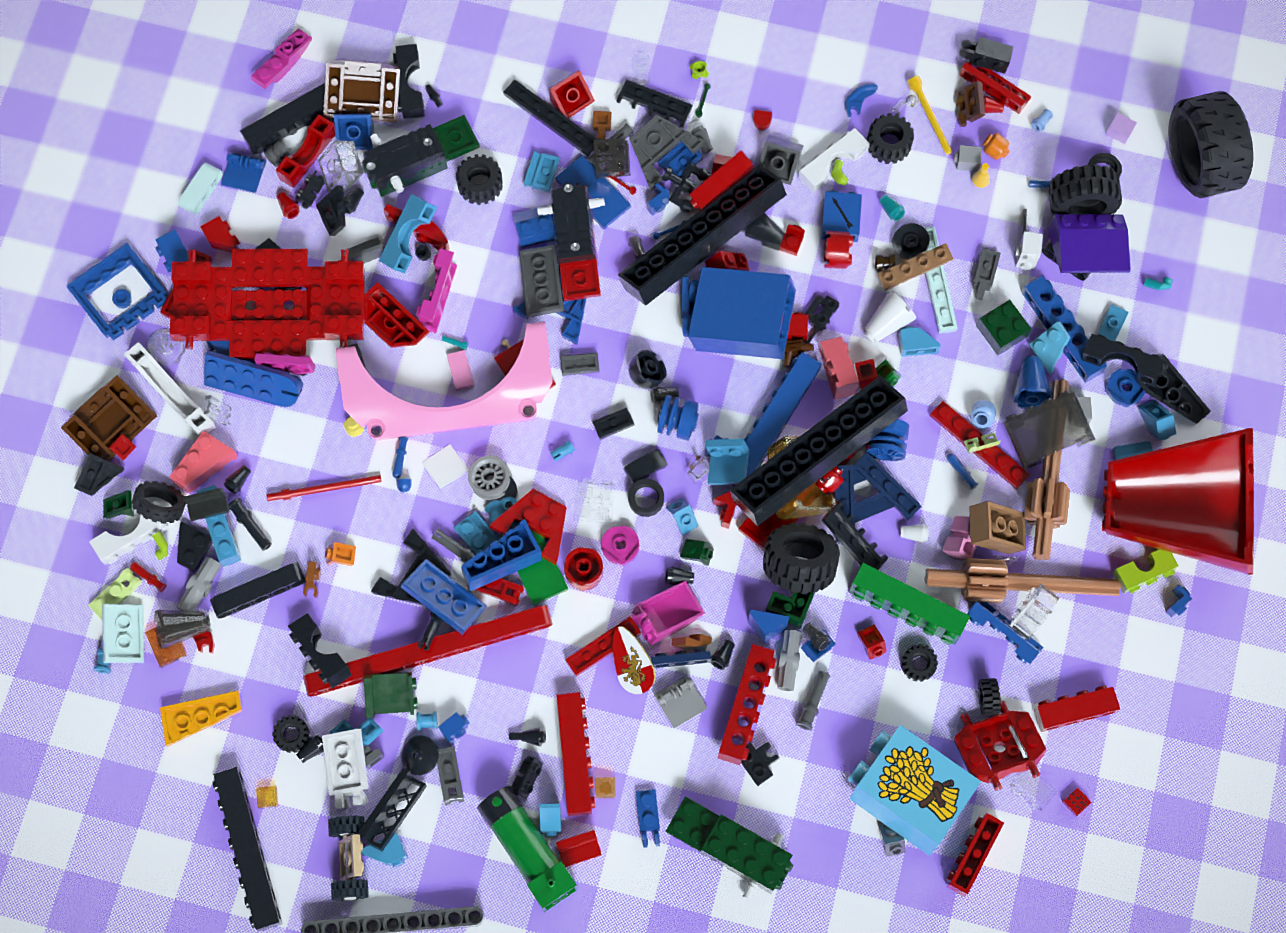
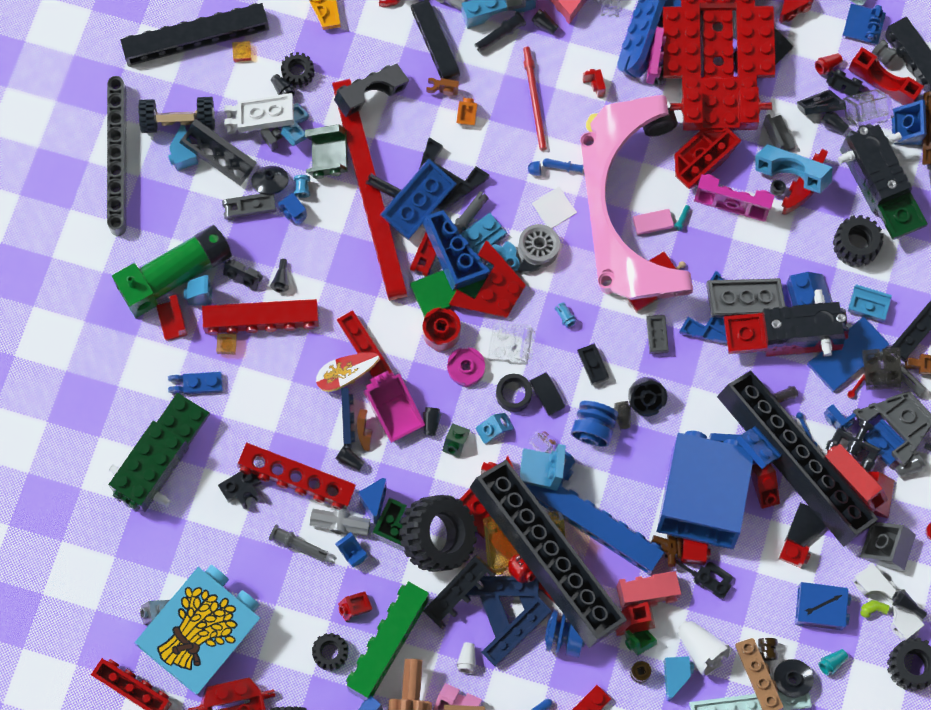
camera: 90 degrees right, 0 degrees up
(307, 424) = (596, 79): none -> red bracket
(680, 701) = (306, 417): light grey hinge -> none
(699, 263) = (758, 447): none -> blue plate
(818, 638) = (358, 548): clear smoke cone -> none
(835, 143) = (904, 601): none -> black cone
(837, 250) = (780, 596): red brick -> none
(914, 378) = (637, 674): none -> dark brown wheel

